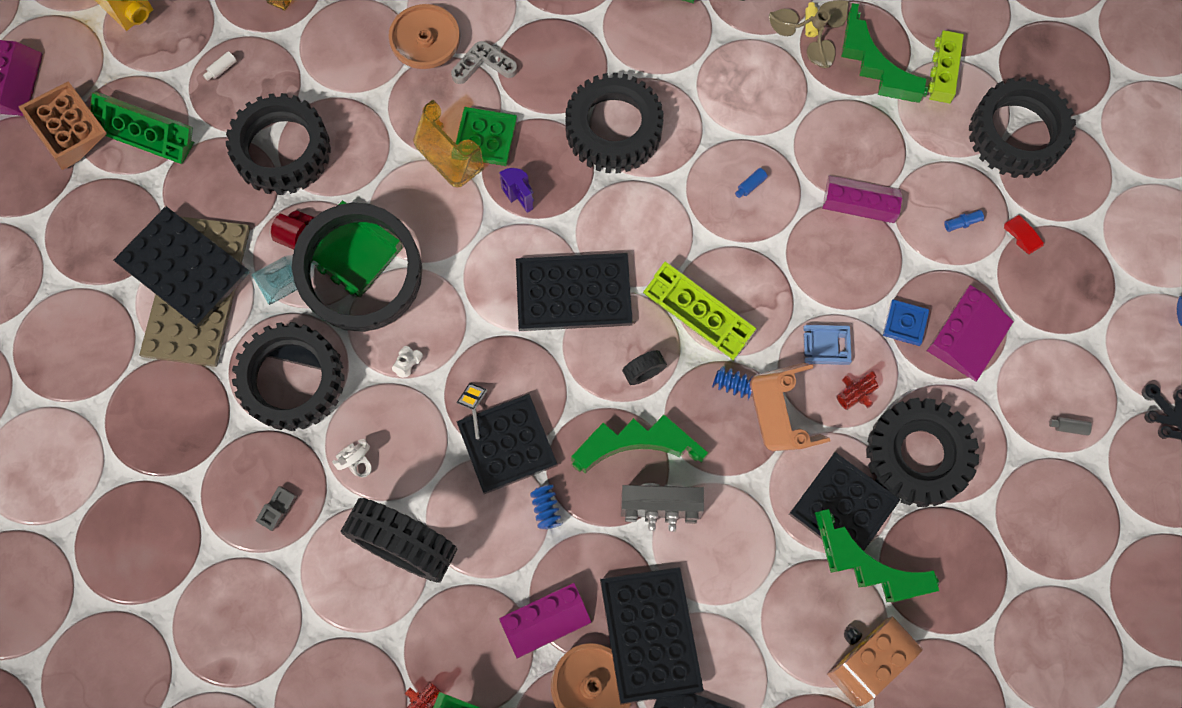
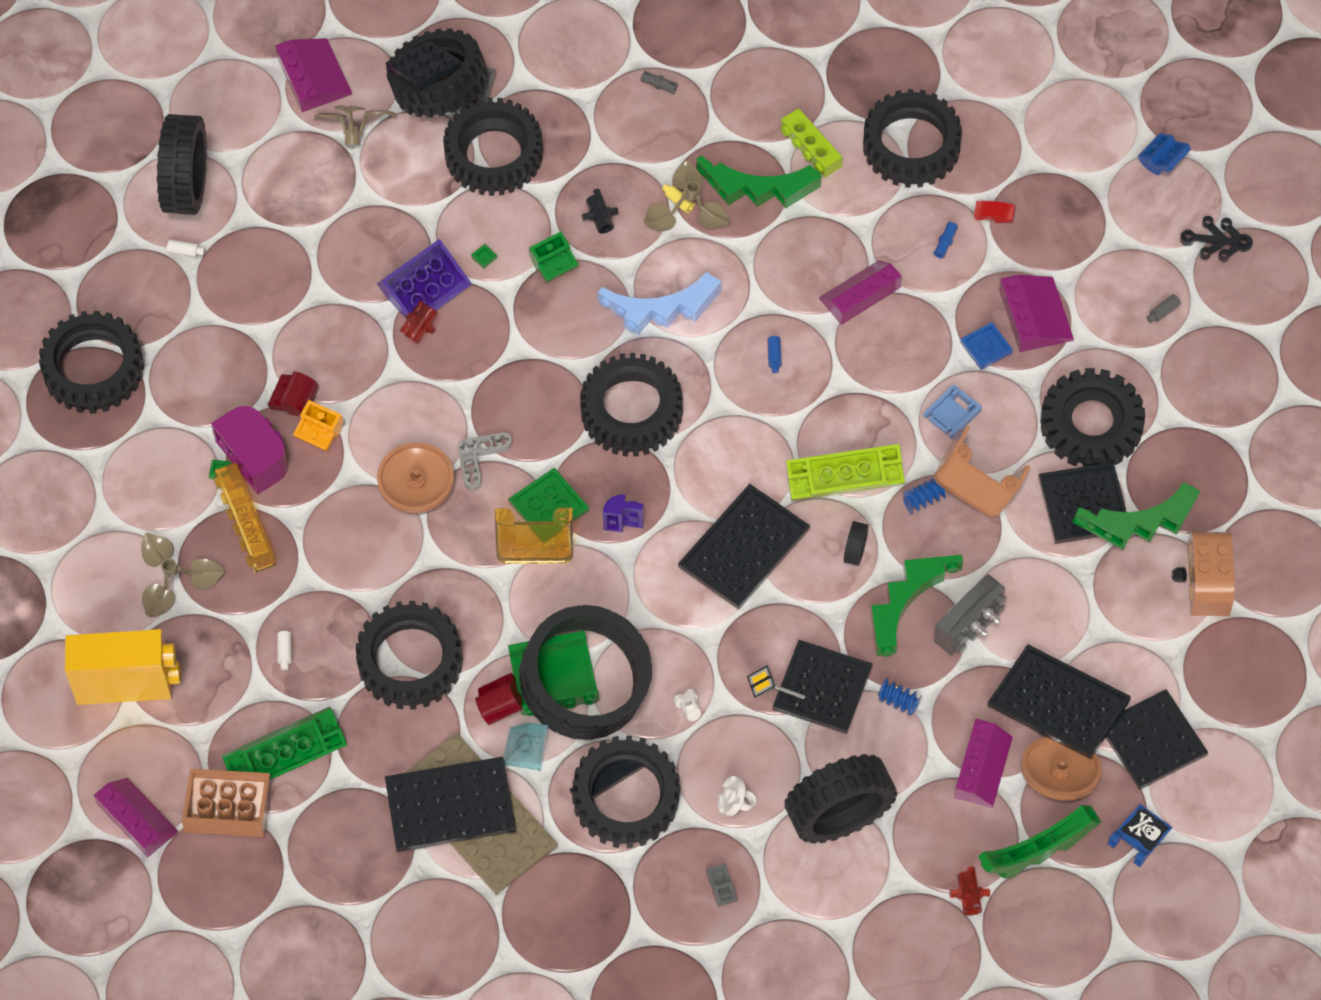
camera: 45 degrees left, 10 degrees down
(735, 93) = (663, 310): none -> light blue arch
(858, 391) = (1007, 421): clear red pin -> none

